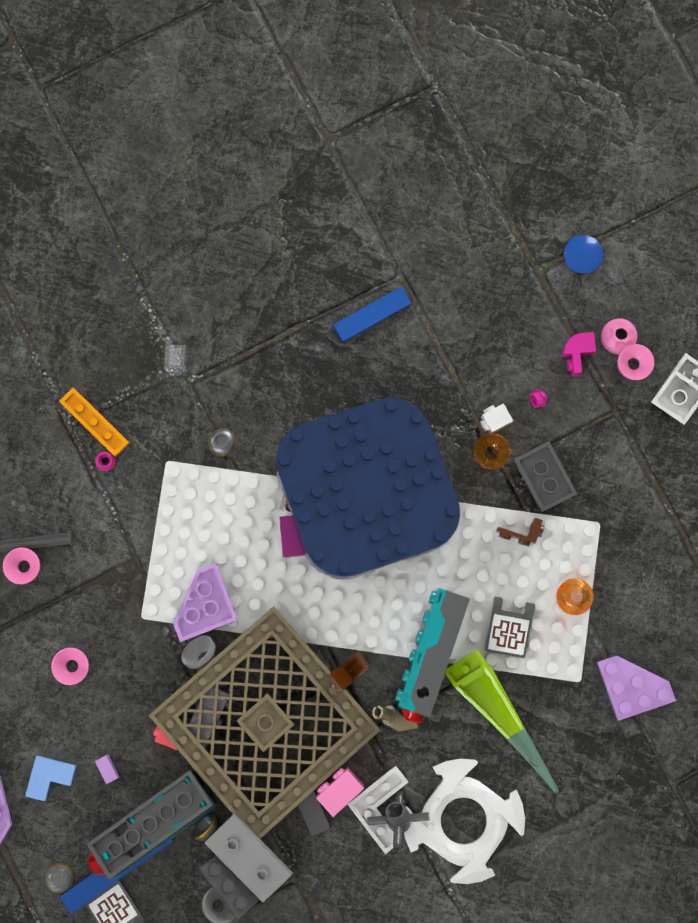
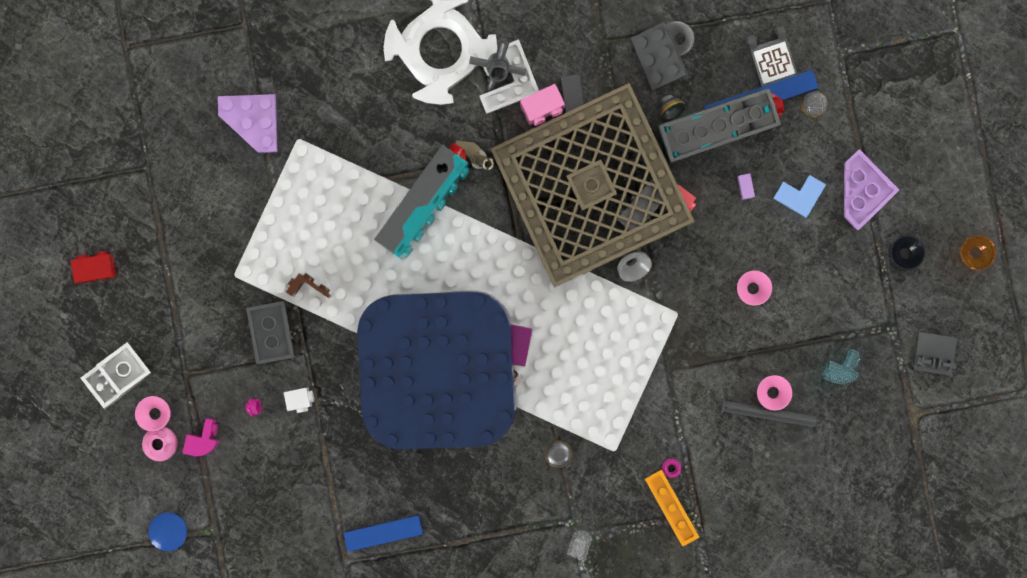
camera: 160 degrees left, 5 degrees up
(205, 605) = (616, 306): lavender plate -> none
(248, 857) = (640, 71): light grey plate -> none
(348, 671) = (503, 208): reddish brown bracket -> none
(483, 690) = (387, 157): lime plate -> none
(499, 444) = (302, 366): clear orange piece -> none
(509, 630) = (347, 203): flag -> none
(564, 600) = (287, 220): clear orange piece -> none

